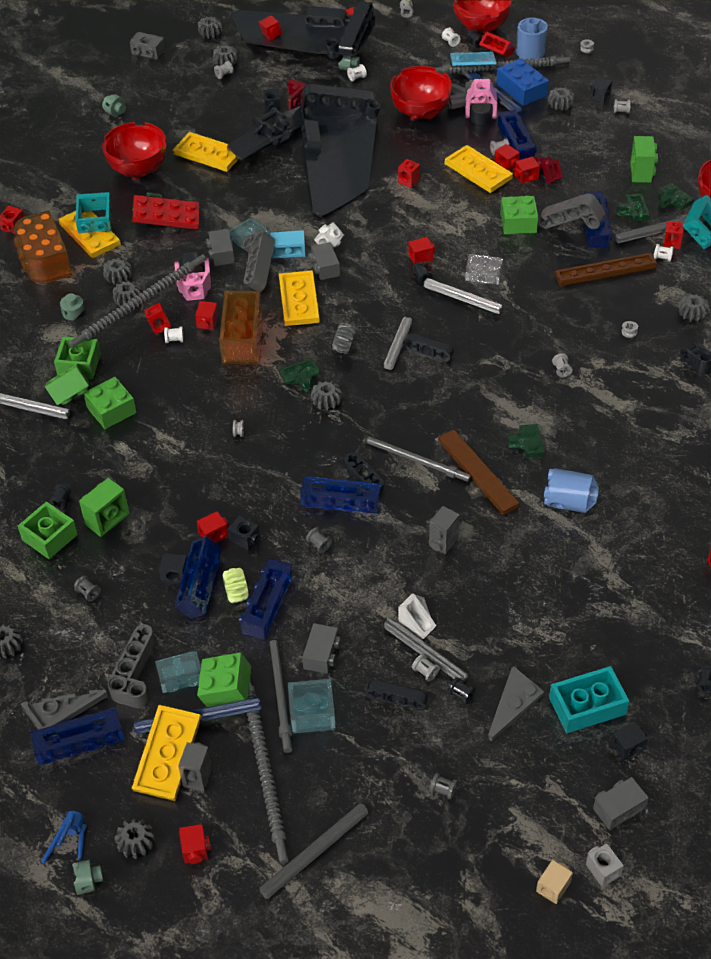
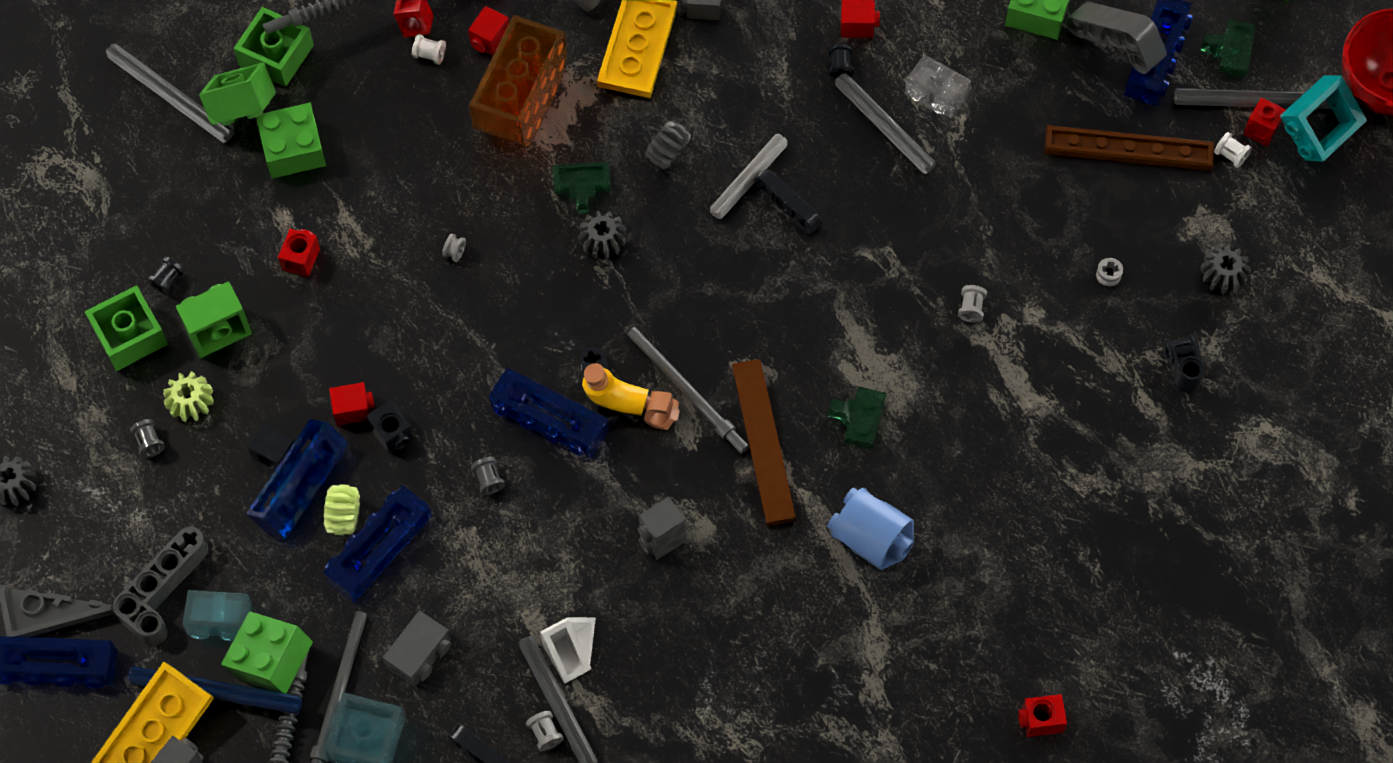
camera: 20 degrees right, 15 degrees up
(104, 557) = (192, 406): none -> yellowish green gear
(141, 459) = (301, 262): none -> red brick
(376, 470) = (626, 398): none -> piece
(673, 195) = (1309, 45): clear green hinge -> none

